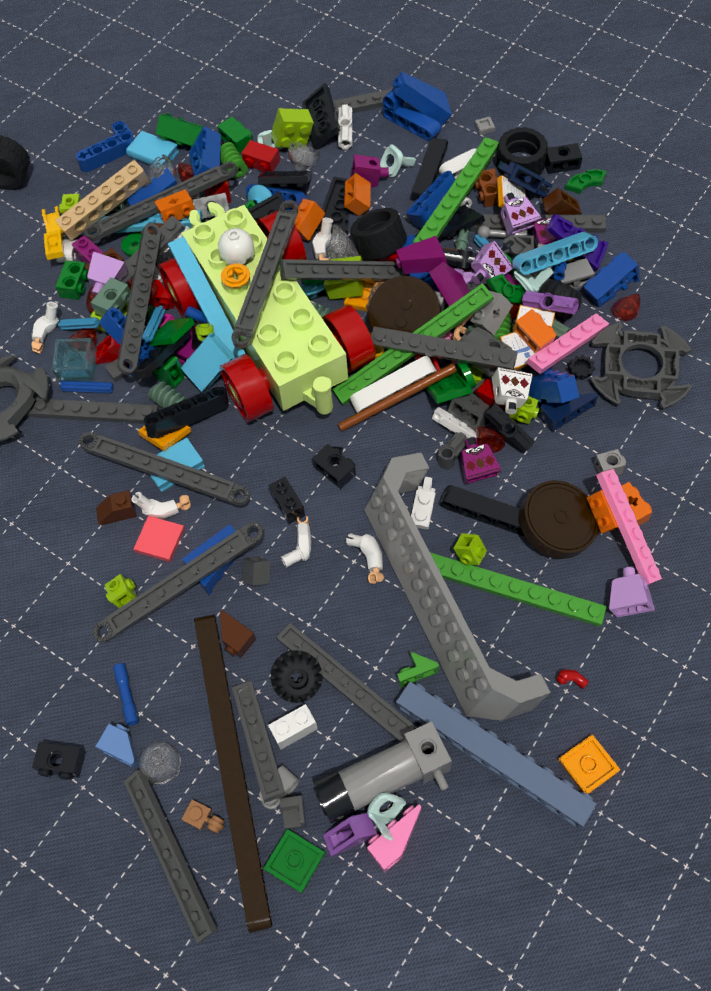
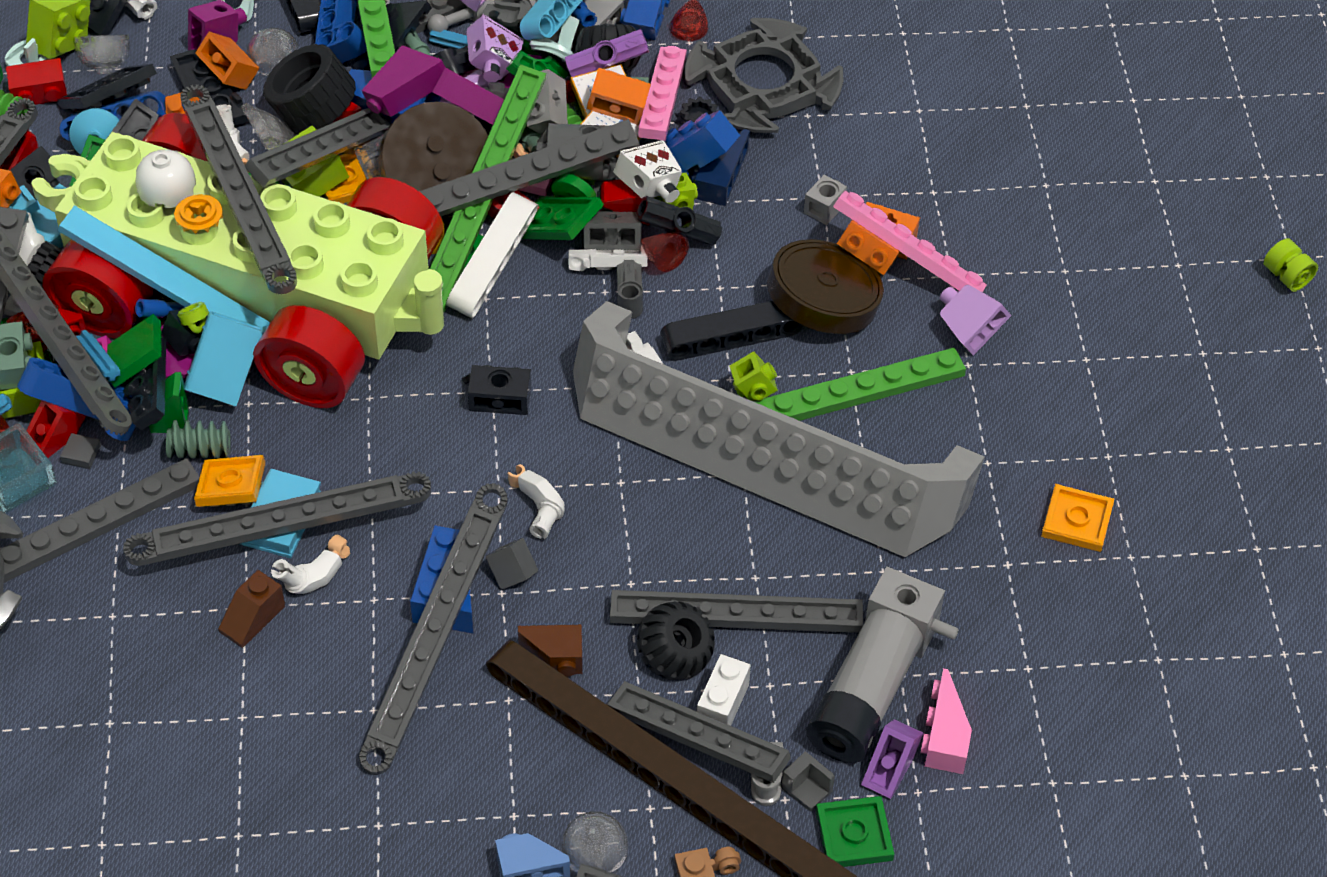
camera: 45 degrees left, 10 degrees down
(86, 386) = (56, 496): blue axle -> none
(120, 590) = (359, 692): lime brick -> none
(123, 683) = (460, 795): blue piece -> none
(159, 538) = (344, 610): coral tile -> none
(186, 412) = (244, 437): black beam -> none
(286, 500) = (476, 460): black brick -> none
(372, 552) = (635, 451): white arm -> none
(382, 819) = (915, 713): light aqua piece -> none
(386, 198) = (269, 48): none -> clear cylinder
(397, 397) = (509, 266): dark orange piece -> none
(422, 669) = (809, 541): bright green slope -> none
(478, 462) = (674, 282): magenta torso -> none
(497, 756) = (980, 569): sand blue brick -> none
(572, 675) = (986, 440): red arm -> none

